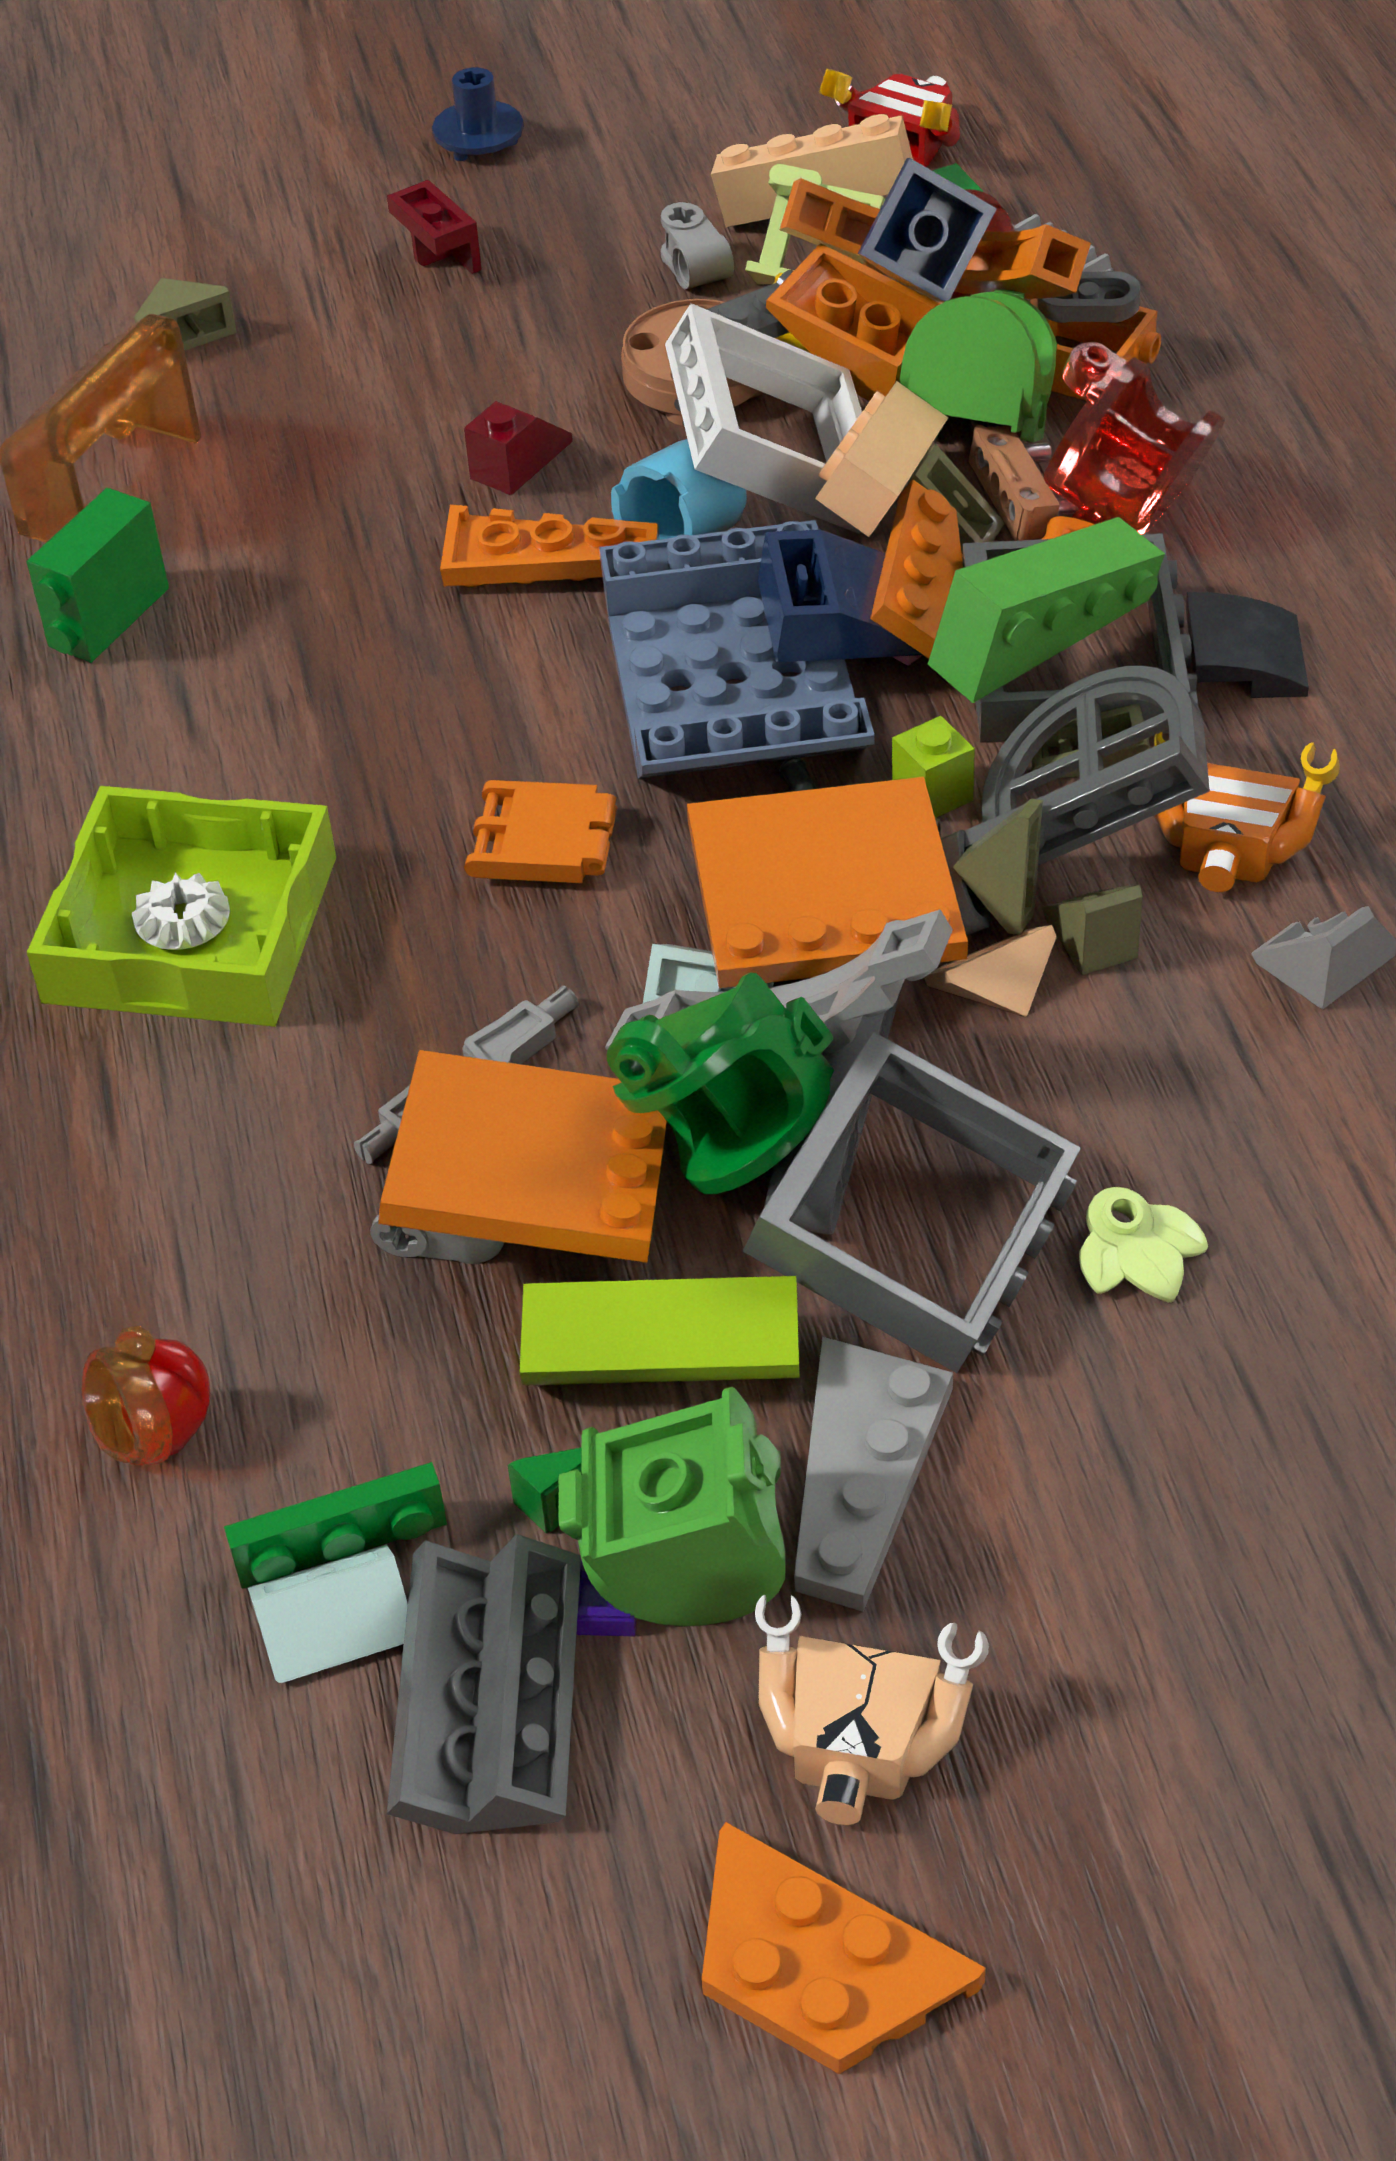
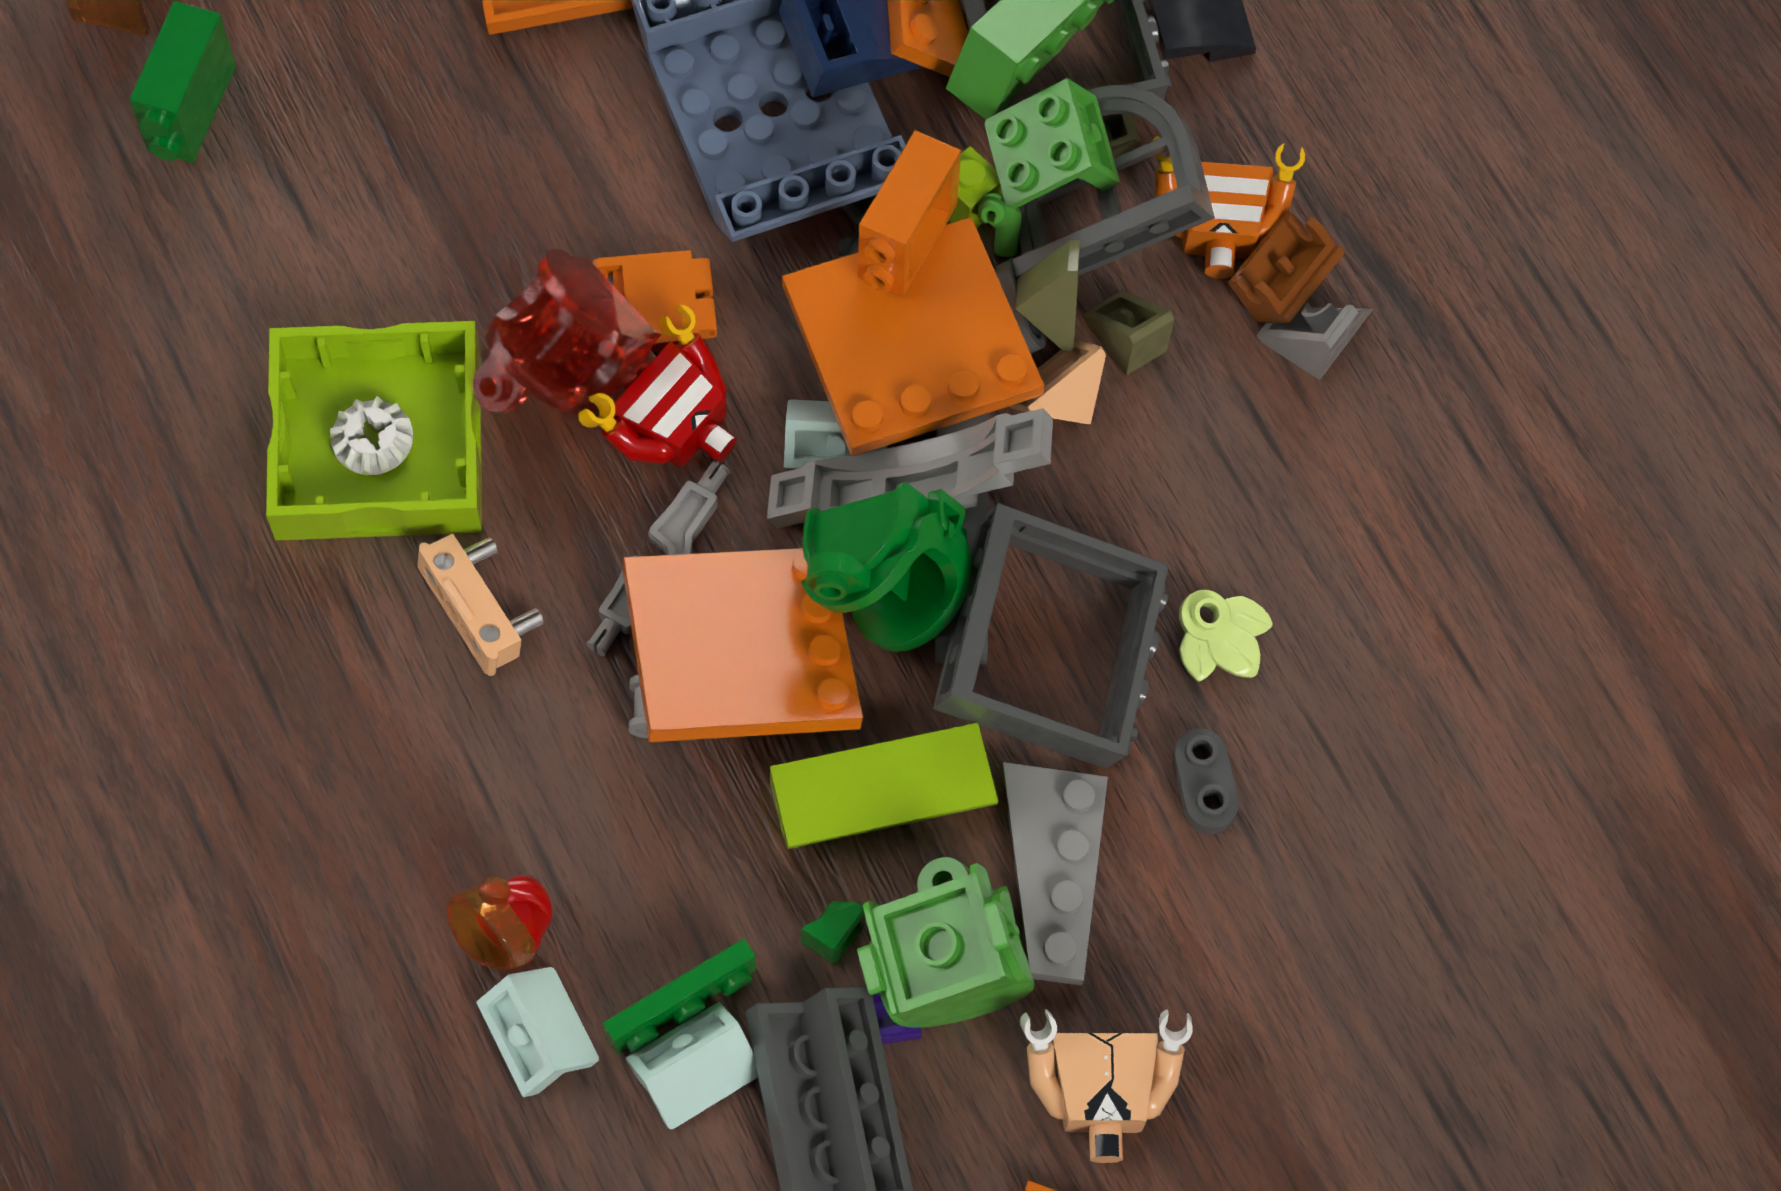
camera: 20 degrees left, 20 degrees up
(149, 1534) = (536, 1029): none -> light aqua panel
(233, 1085) = (471, 604): none -> light nougat piece
(423, 840) = (563, 340): none -> clear red animal
(524, 925) = (670, 405): none -> red torso
(861, 697) = (908, 214): none -> orange window
(965, 791) = (1004, 220): none -> bright green arm
(1030, 702) = (1050, 143): none -> bright green bracket
(1081, 1396) = (1205, 778): none -> dark grey plate
(1296, 882) = (1285, 269): none -> dark orange hinge

